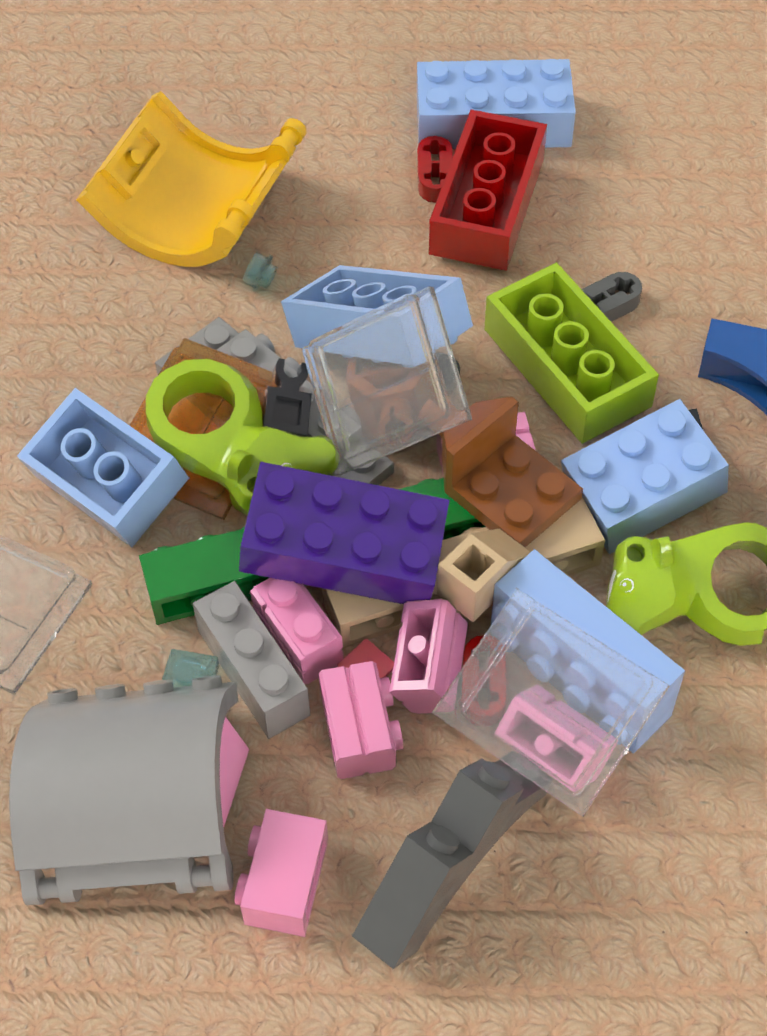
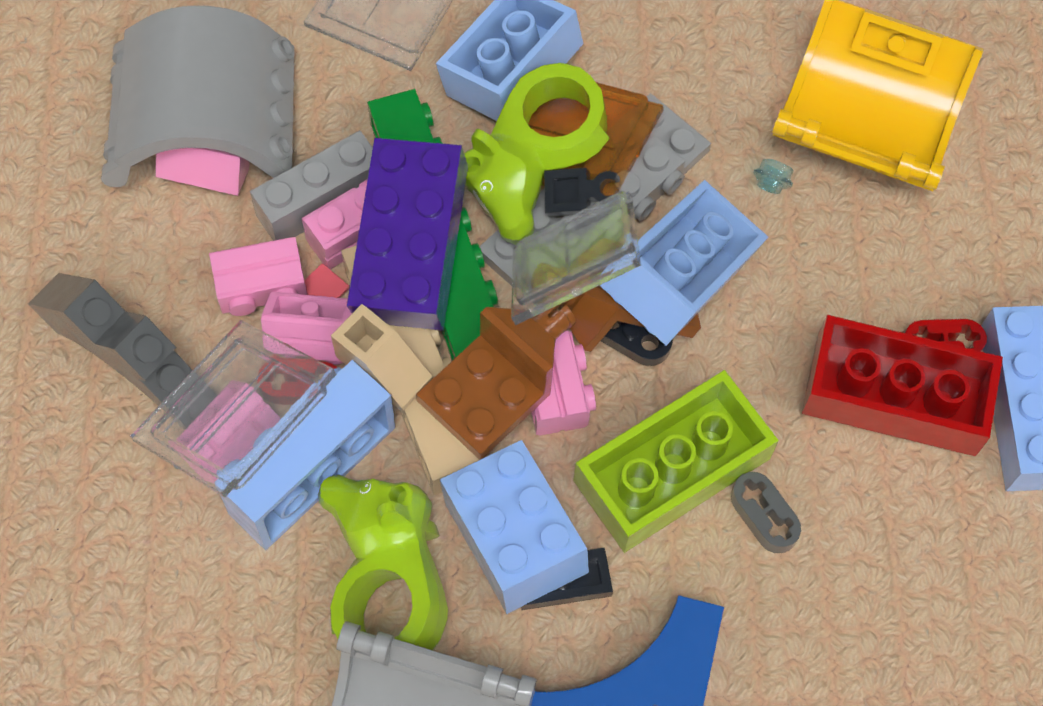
camera: 85 degrees right, 10 degrees up
(186, 665) = (310, 141): clear light blue plate -> none
(283, 872) = (121, 224): bright pink piece -> none

